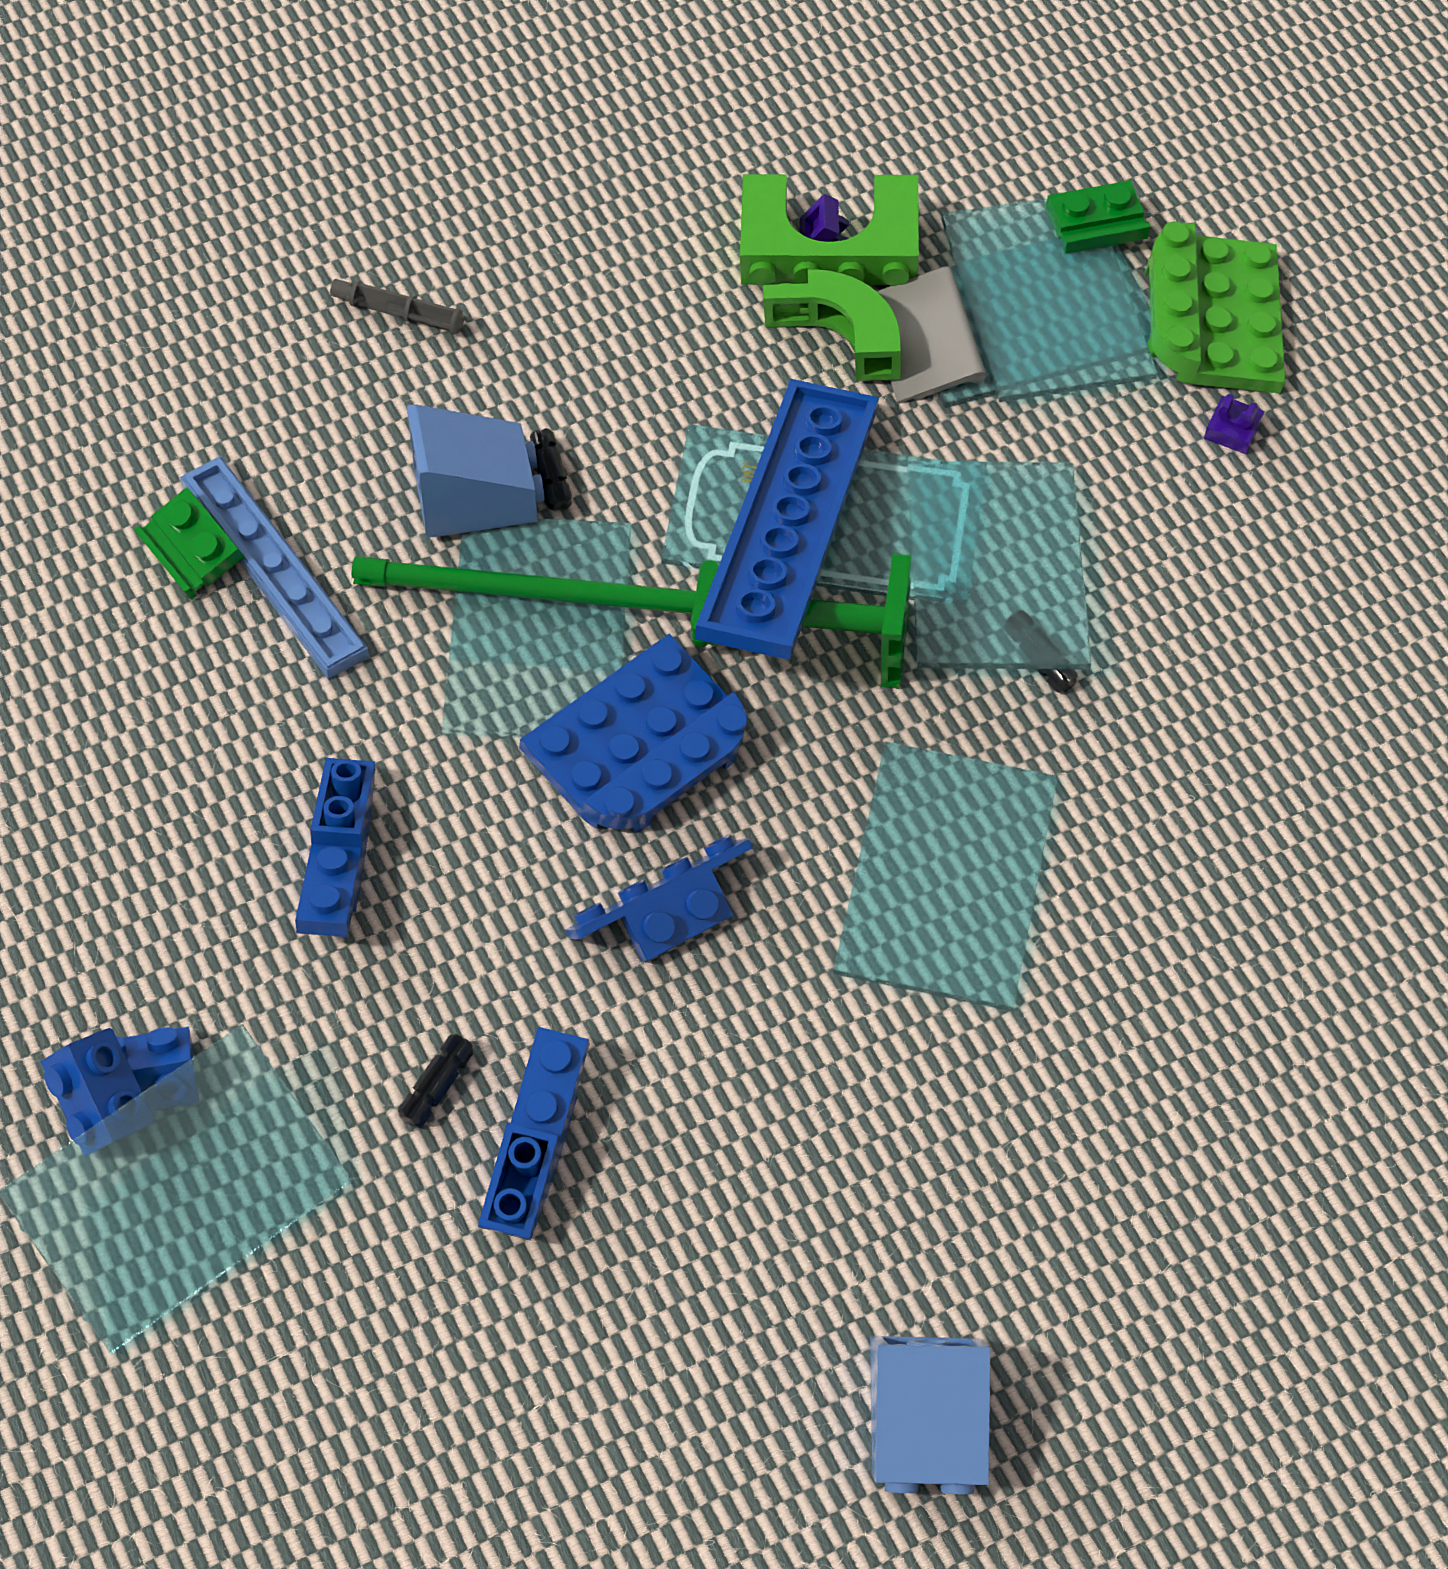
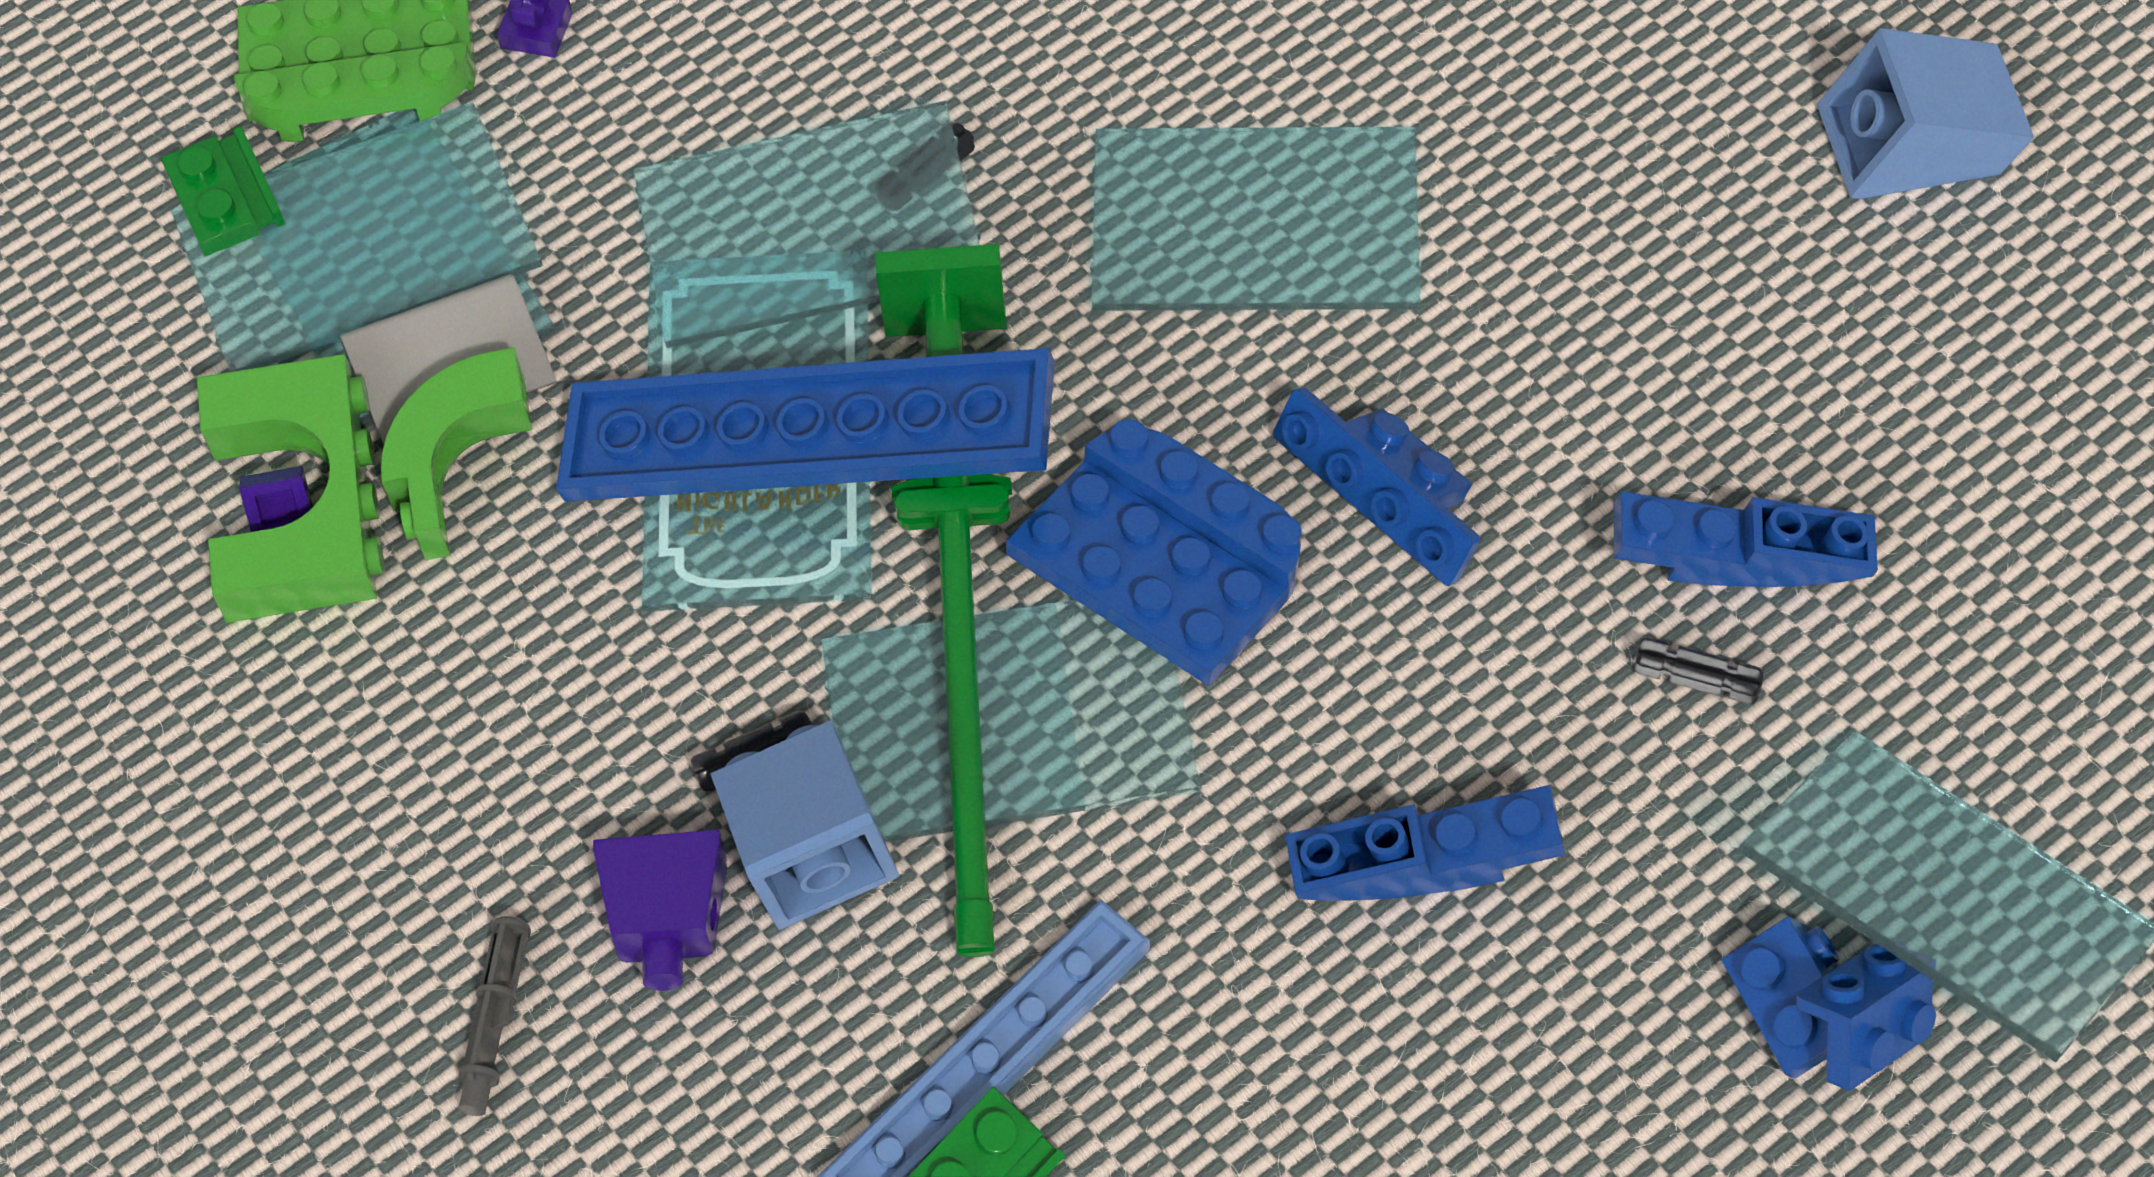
camera: 95 degrees left, 0 degrees up
(444, 382) = (662, 899): none -> dark purple torso

